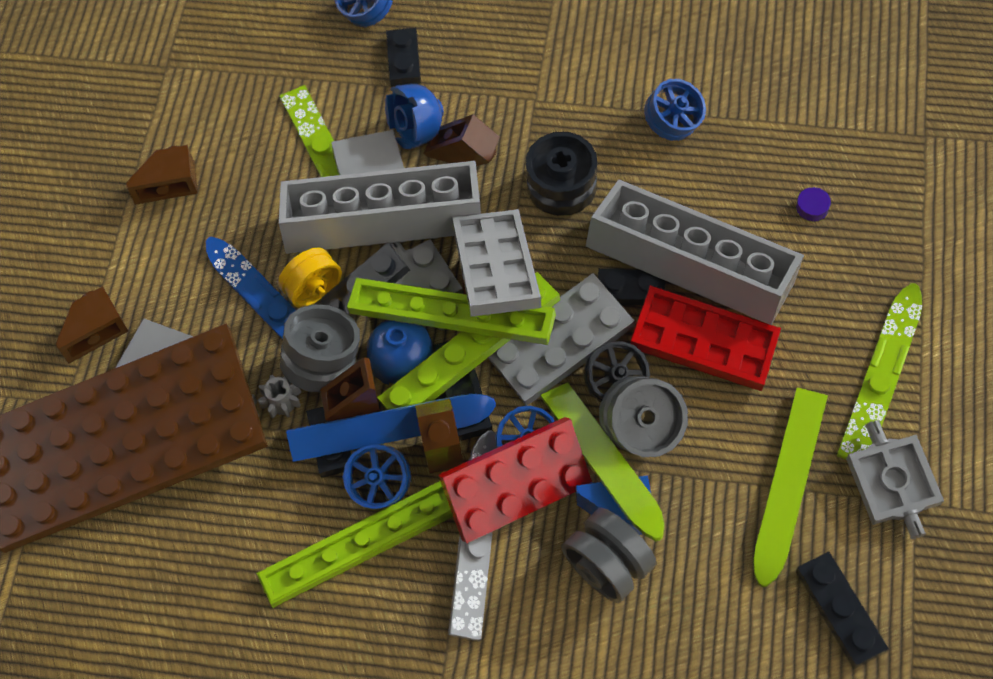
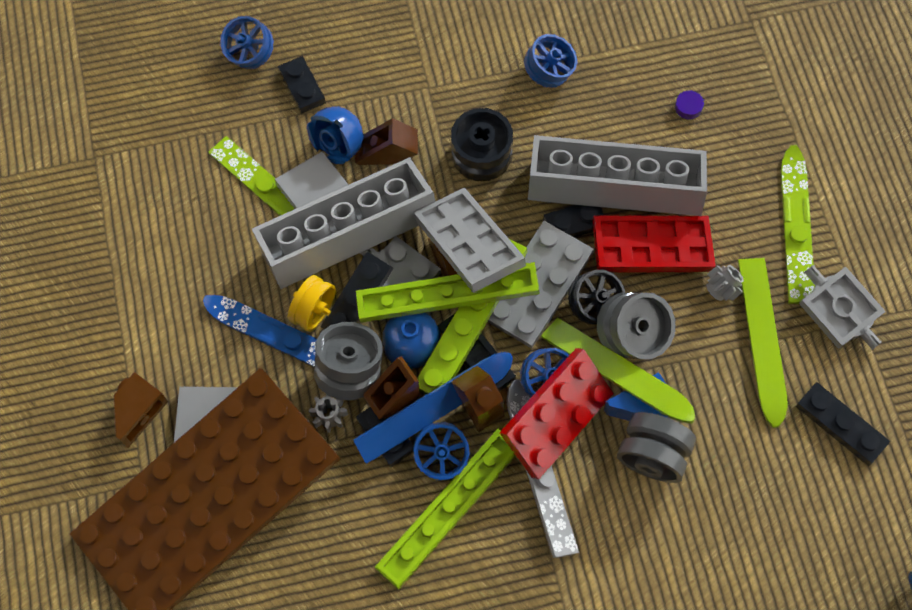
camera: 25 degrees left, 5 degrees up
(164, 176) = (141, 255): reddish brown slope -> none
(768, 406) = (724, 283): none -> light grey gear

